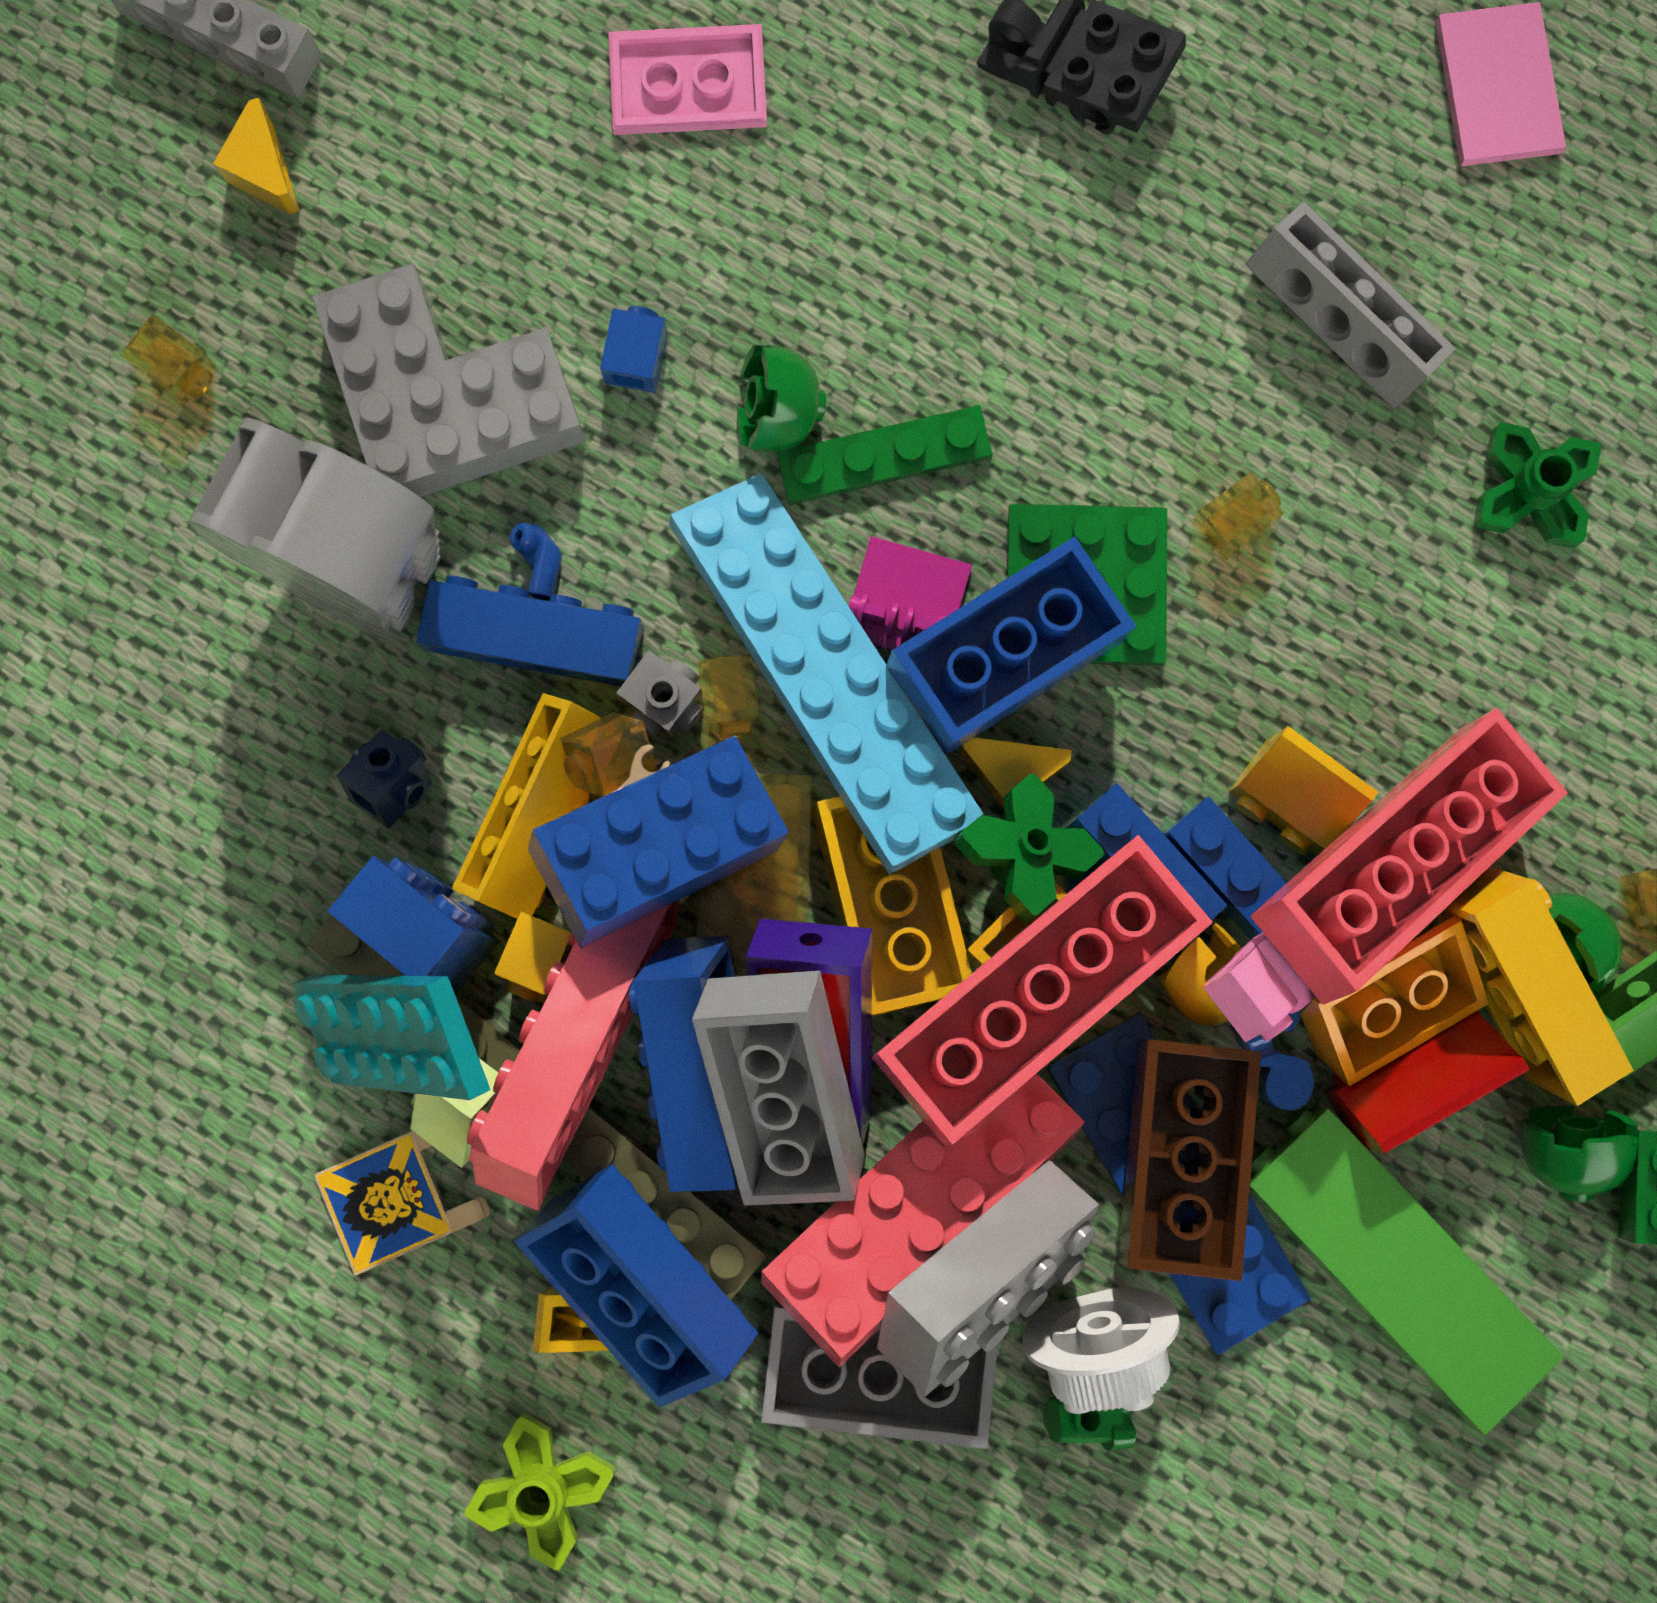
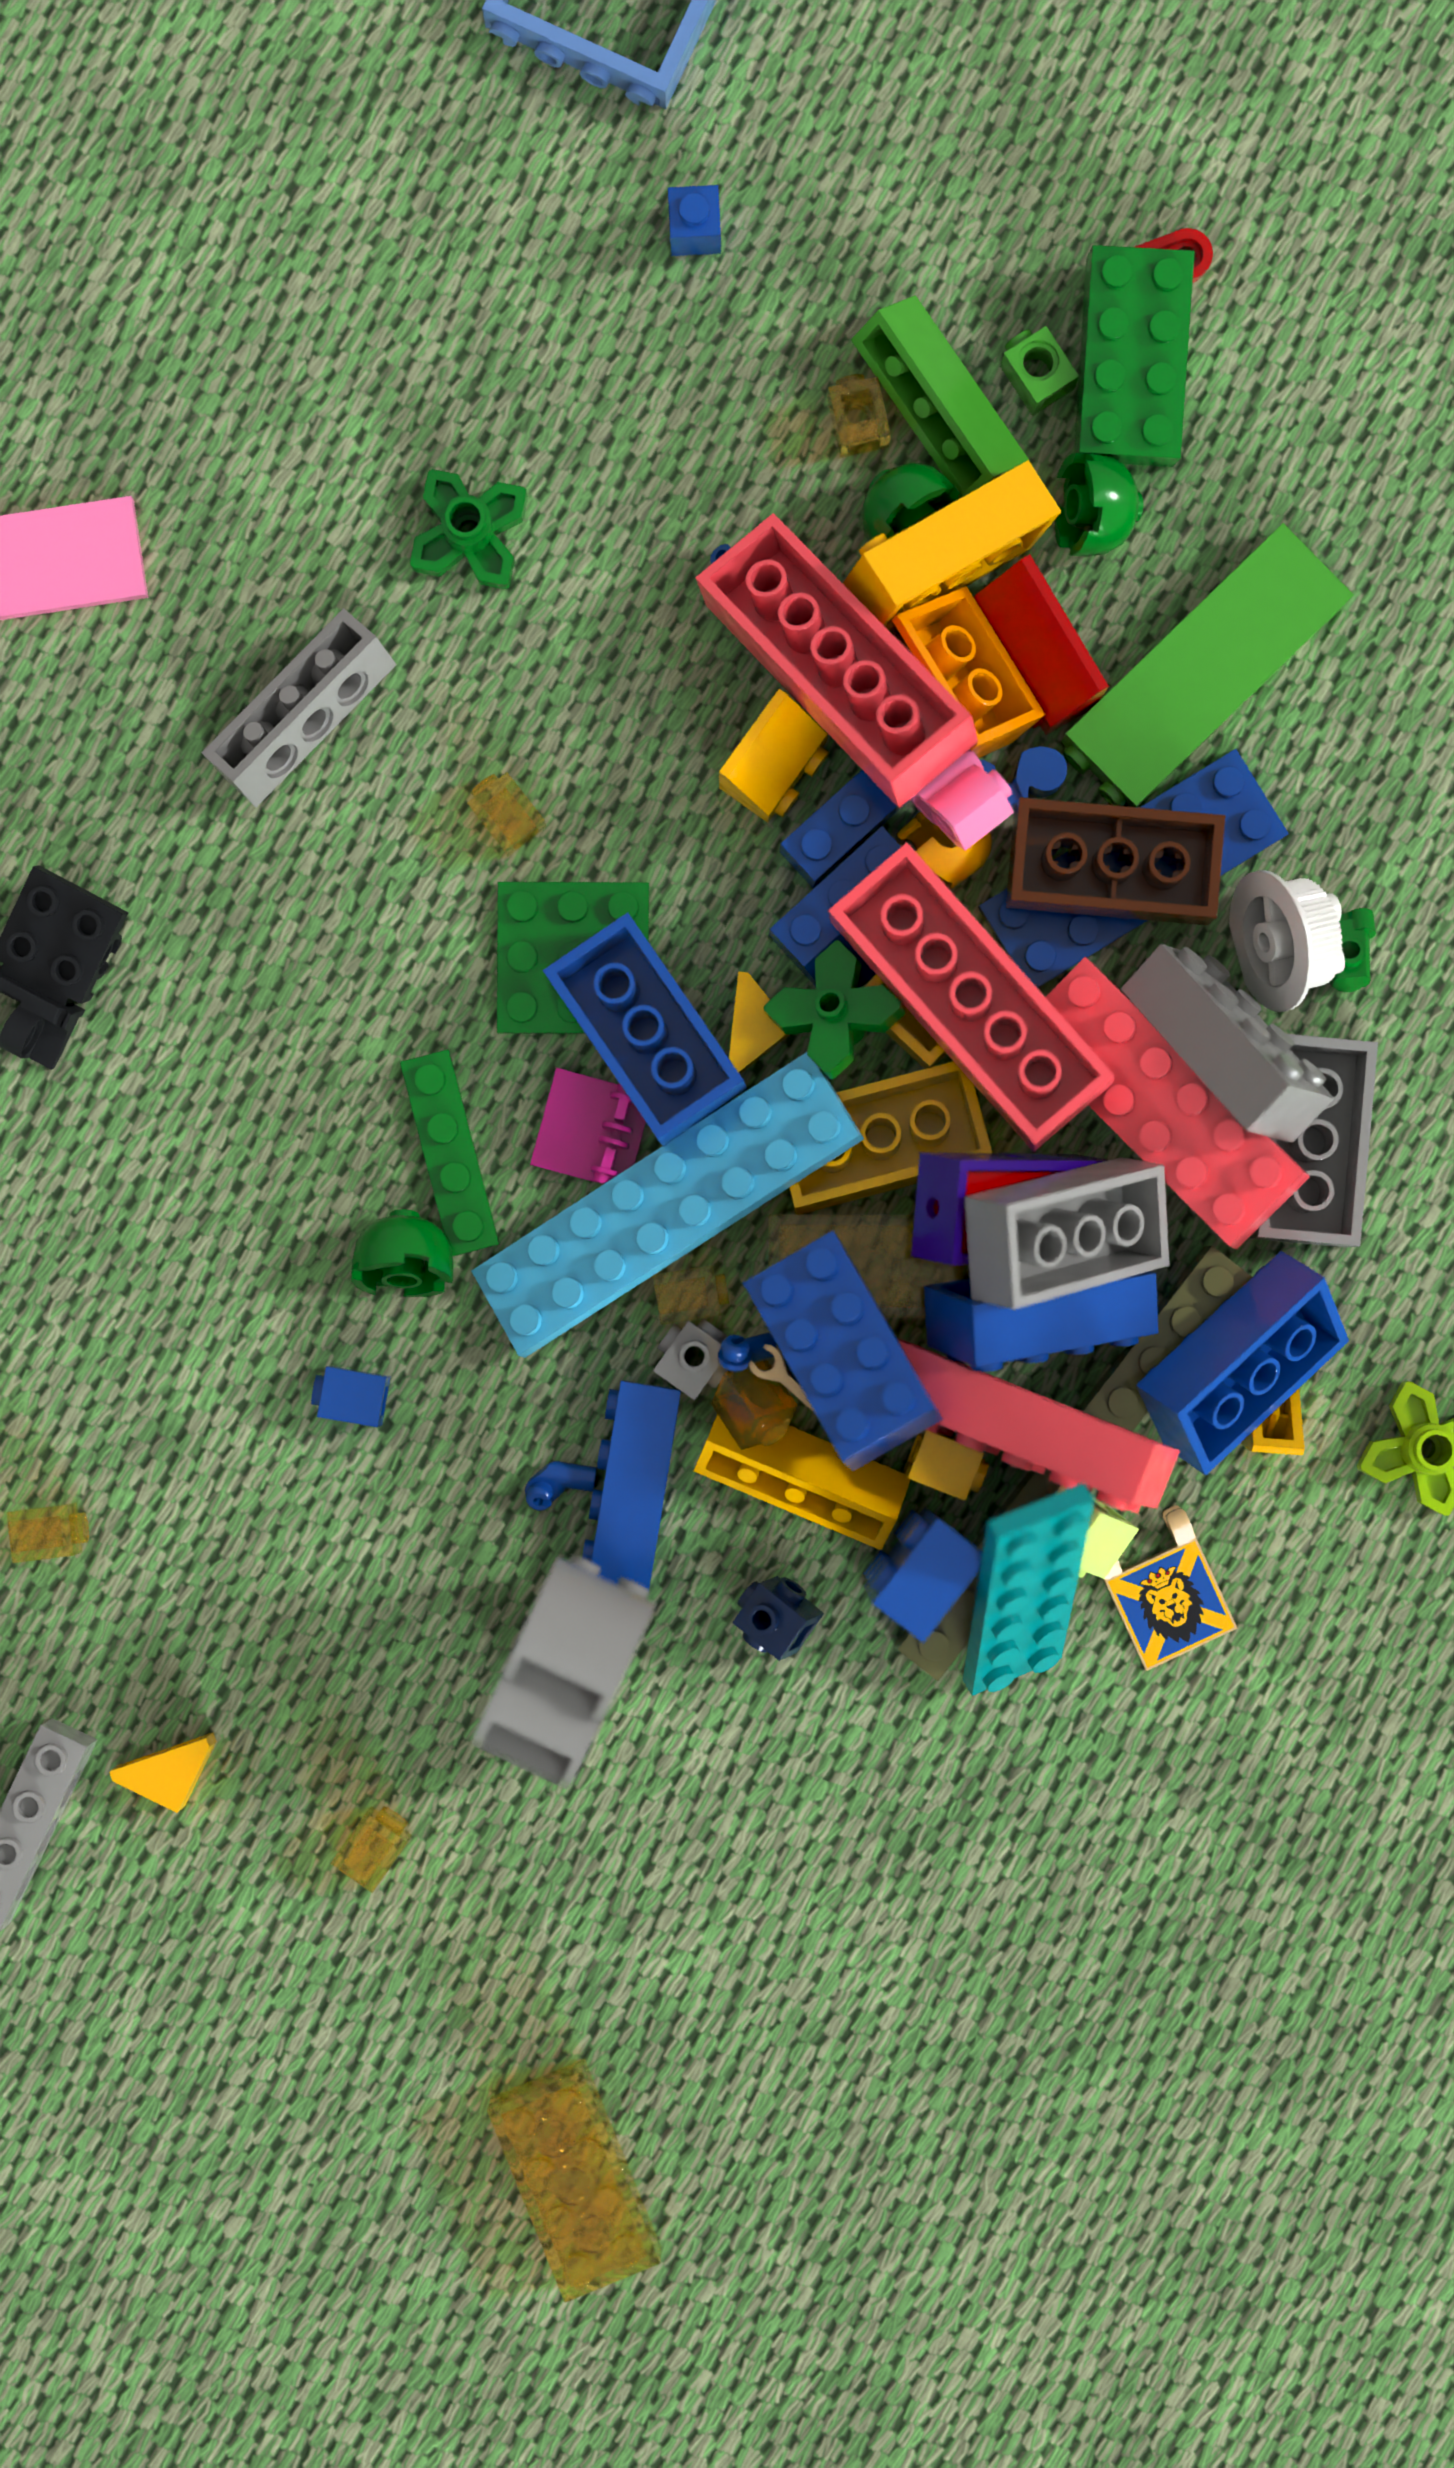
camera: 90 degrees left, 5 degrees up
(435, 416) = (425, 1589): light grey piece -> none
(506, 46) = (47, 1532): none -> clear yellow brick
(663, 734) = (739, 1351): none -> blue arm
(687, 79) = (72, 1354): bright pink tile -> none

